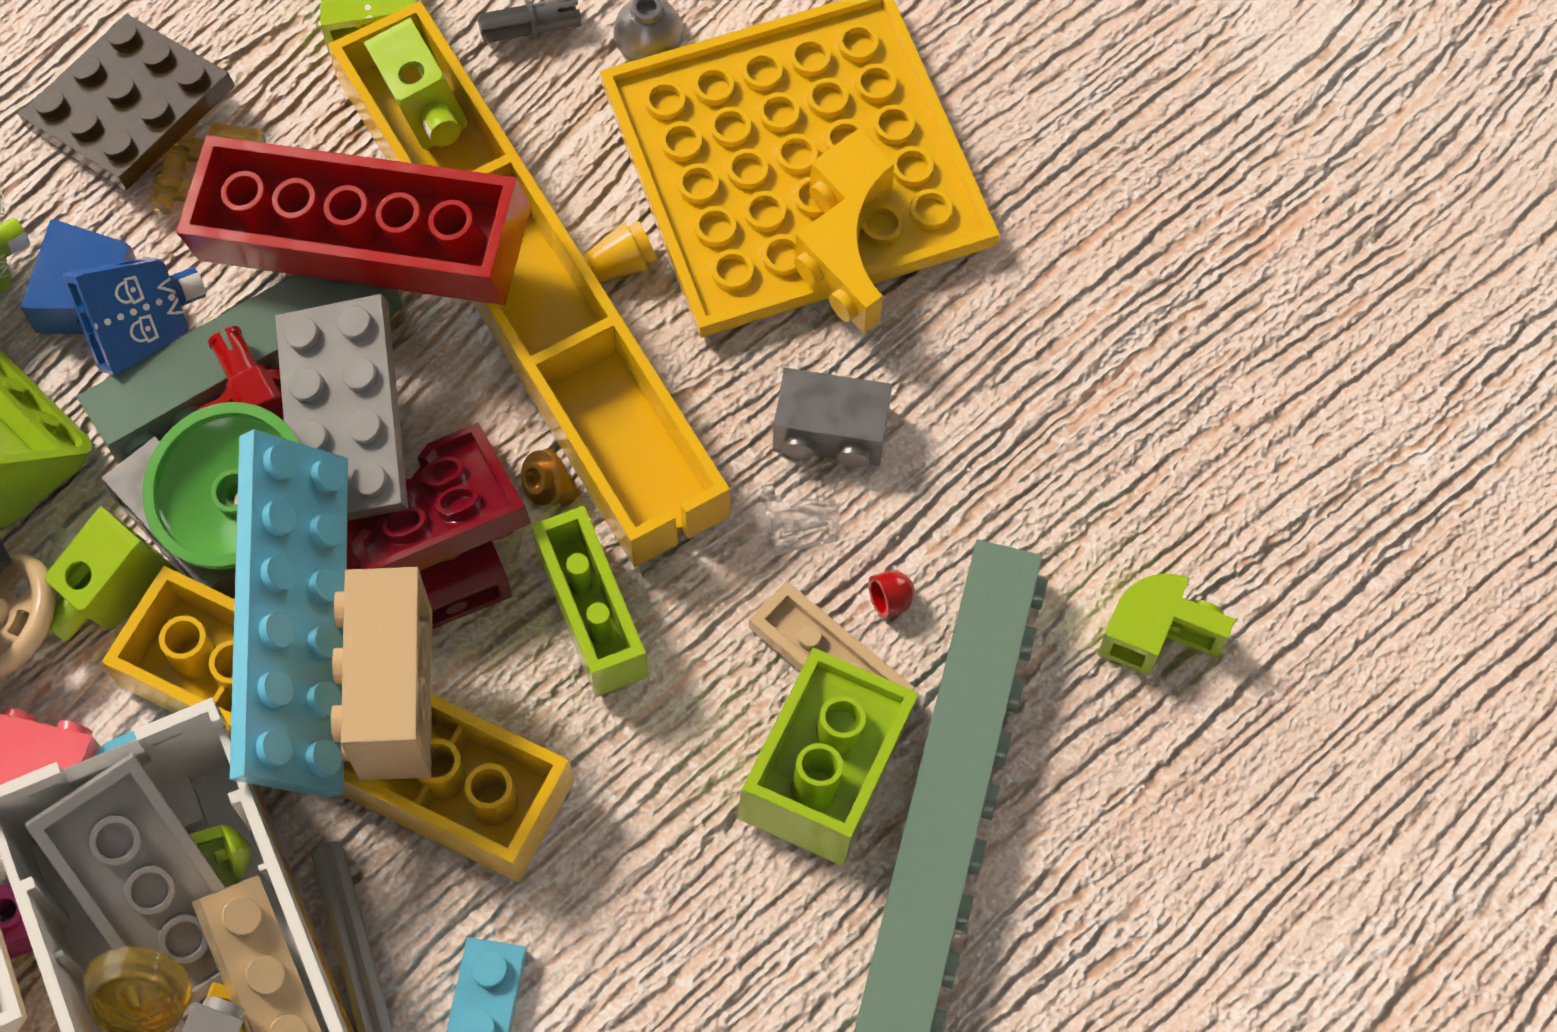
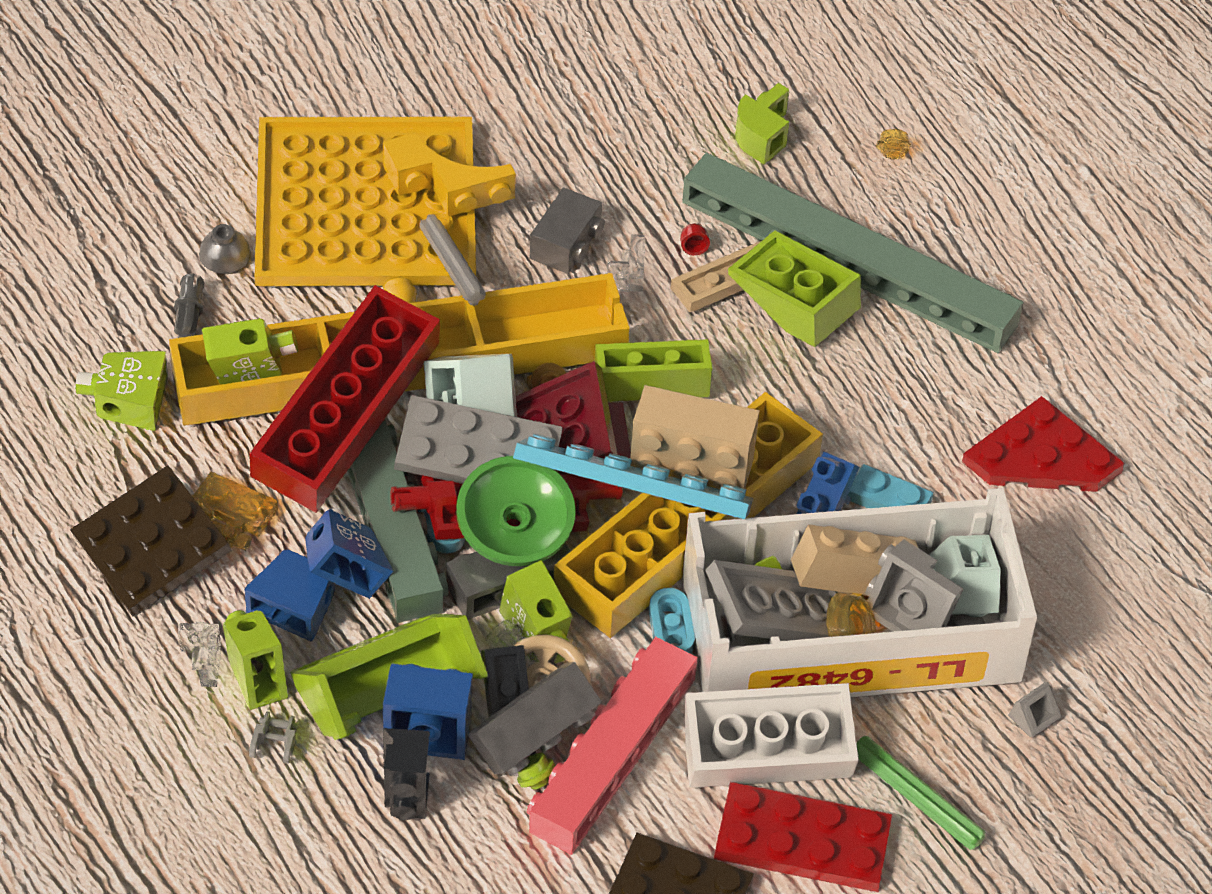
camera: 75 degrees left, 15 degrees down
(433, 903) = (828, 485): none -> blue hips
(444, 371) = (473, 382): none -> light aqua slope
(680, 280) = (452, 260): none -> light grey axle
(1205, 830) = (893, 143): none -> clear yellow plate

